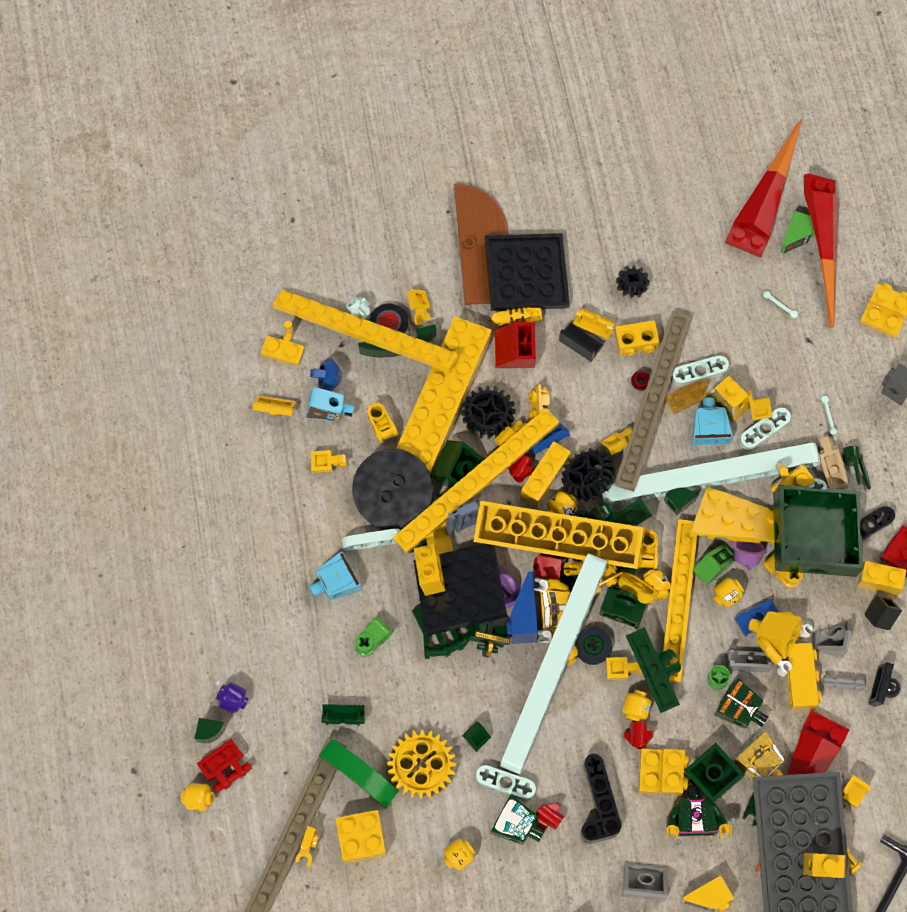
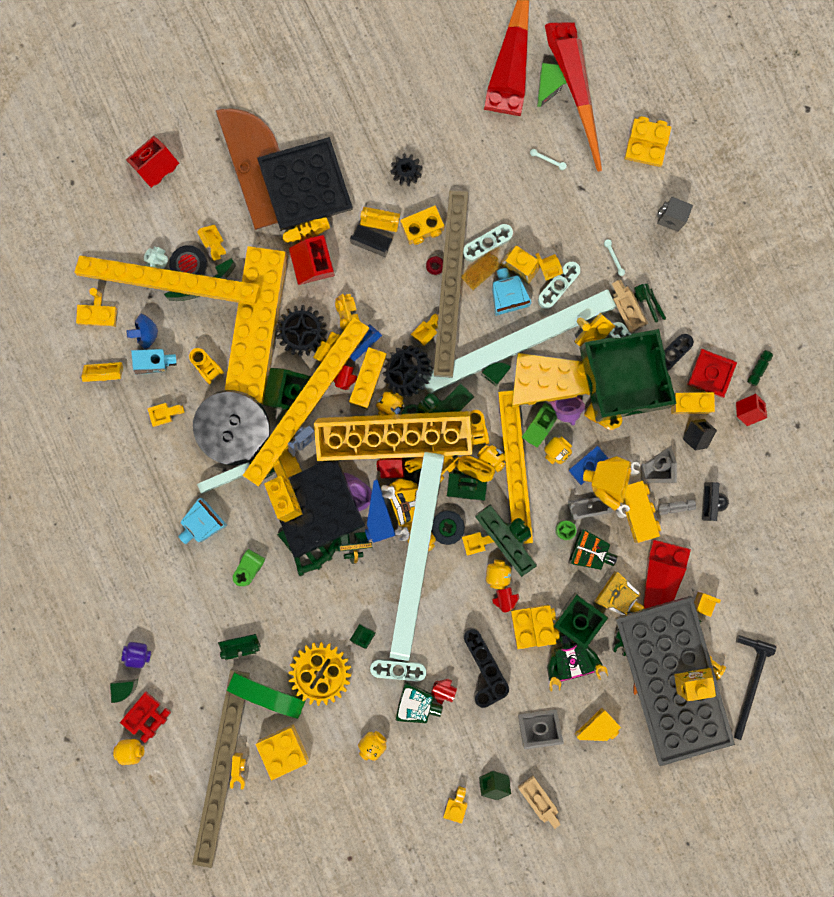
camera: 15 degrees left, 15 degrees up
(379, 217) = (153, 161): none -> red slope

